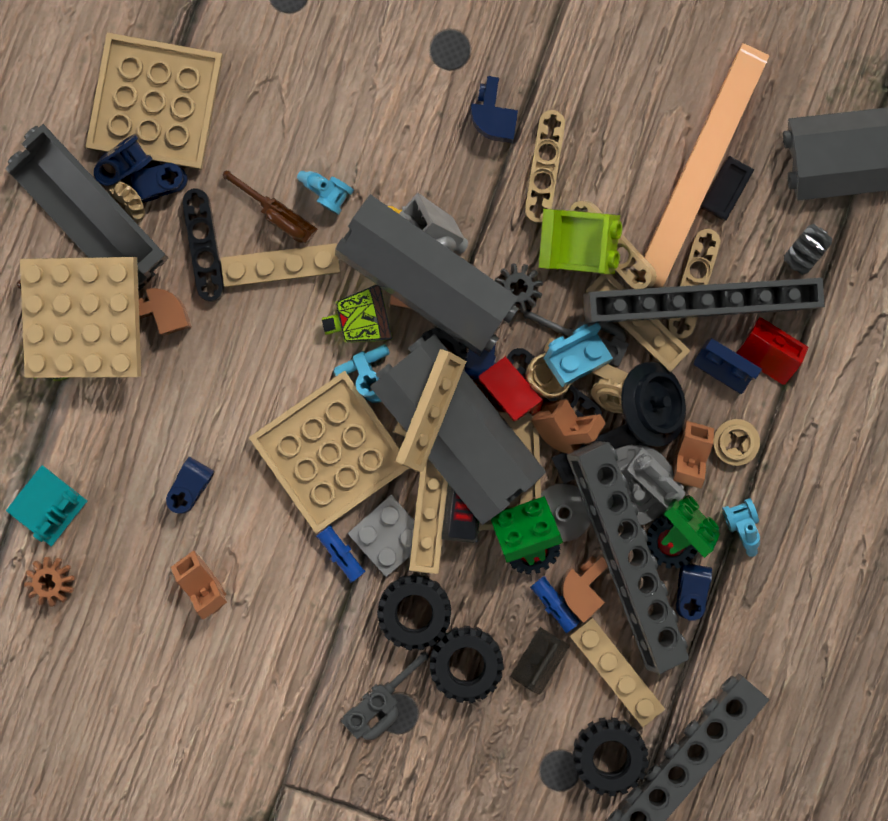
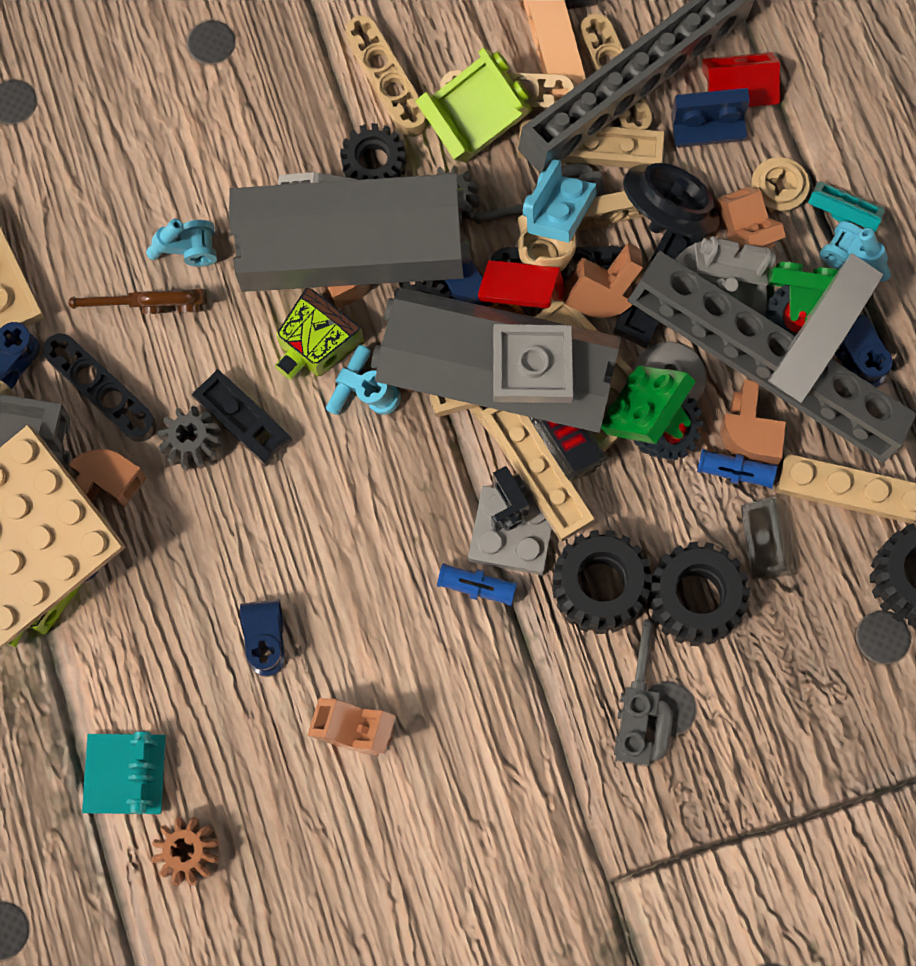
camera: 30 degrees left, 15 degrees down
(239, 316) = (190, 425): none -> dark grey gear
(276, 334) = (241, 416): none -> black plate
(279, 265) = (193, 350): tan plate -> none
(329, 452) = (385, 491): tan plate -> none
(403, 517) = (512, 492): none -> black bracket
(431, 410) = (456, 346): tan plate -> none
(469, 457) = (532, 363): none -> light grey plate
(493, 121) = (301, 67): dark blue brick -> none
(496, 205) = (369, 140): none -> black tyre
(608, 395) = (634, 233): tan gear -> none
(671, 571) = (825, 328): none -> light grey slope
(764, 491) = (846, 206): none -> teal plate

